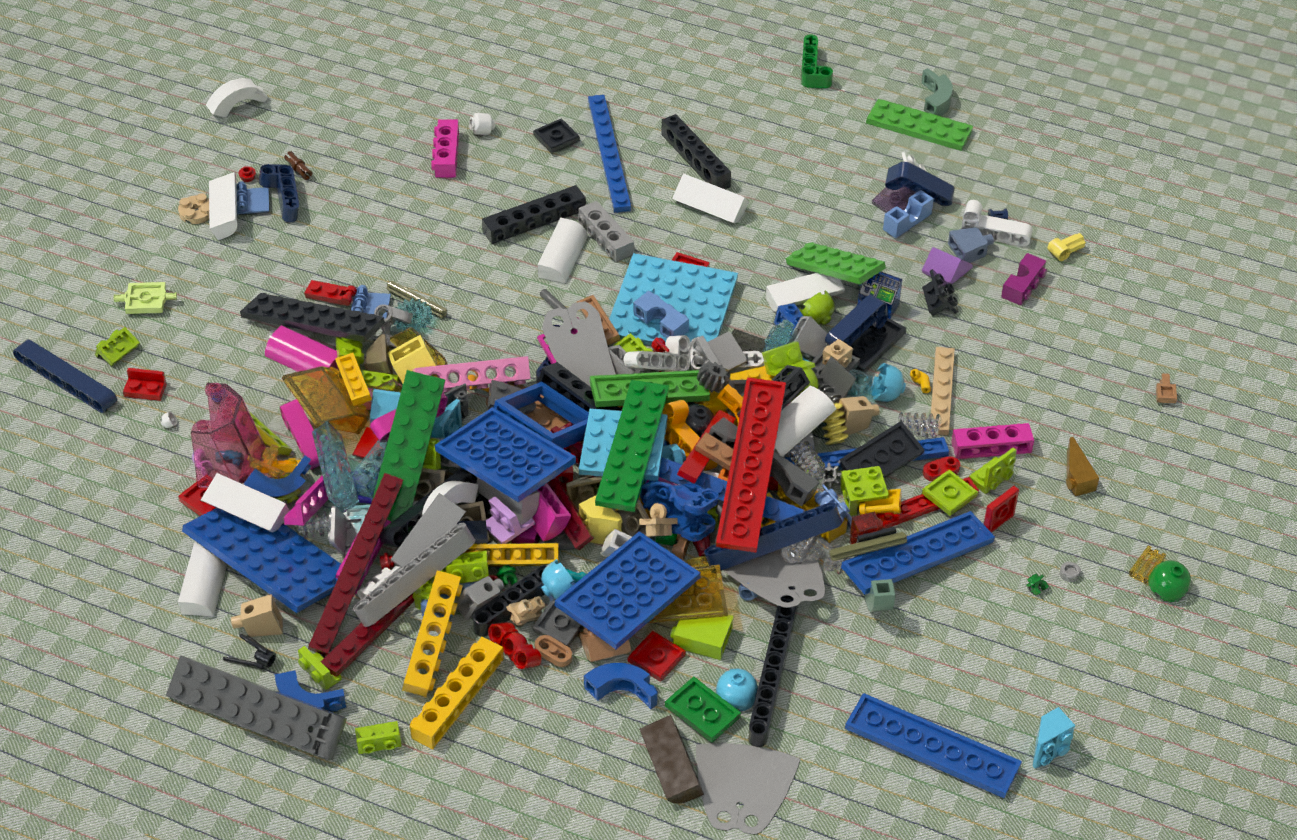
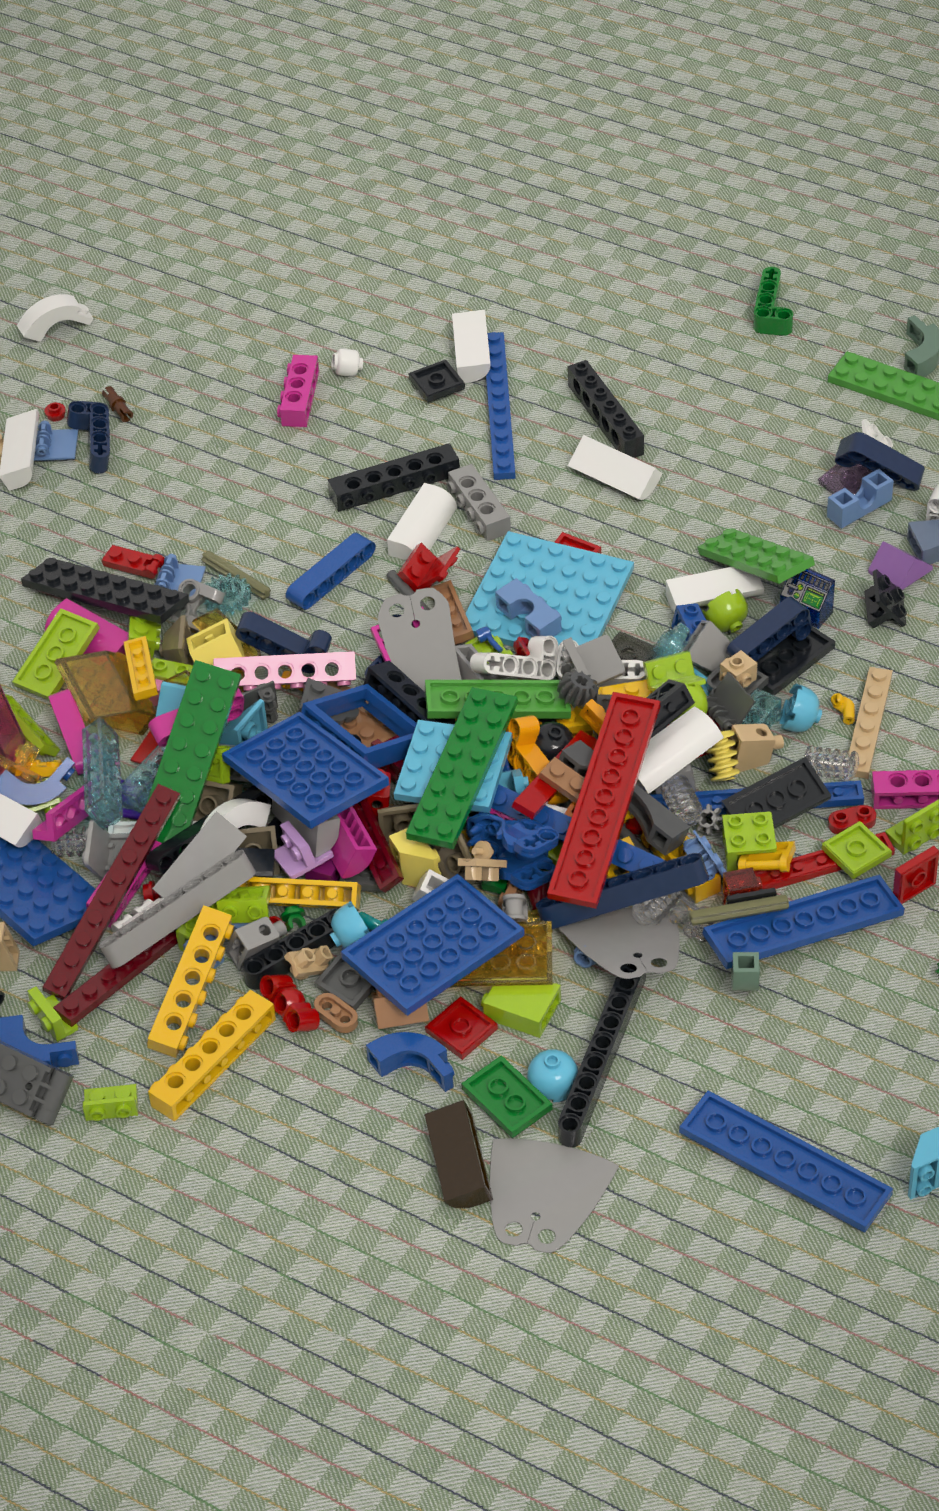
camera: 10 degrees right, 0 degrees up
(284, 358) = (64, 637): none -> lime plate
(463, 351) = (278, 640): none -> dark blue beam
(493, 292) = (330, 571): none -> blue beam
(570, 287) = (425, 568): none -> red bracket
(580, 106) = (471, 345): none -> white brick
(629, 337) = (484, 634): none -> blue hand
(689, 554) = (515, 907): none -> light grey piece

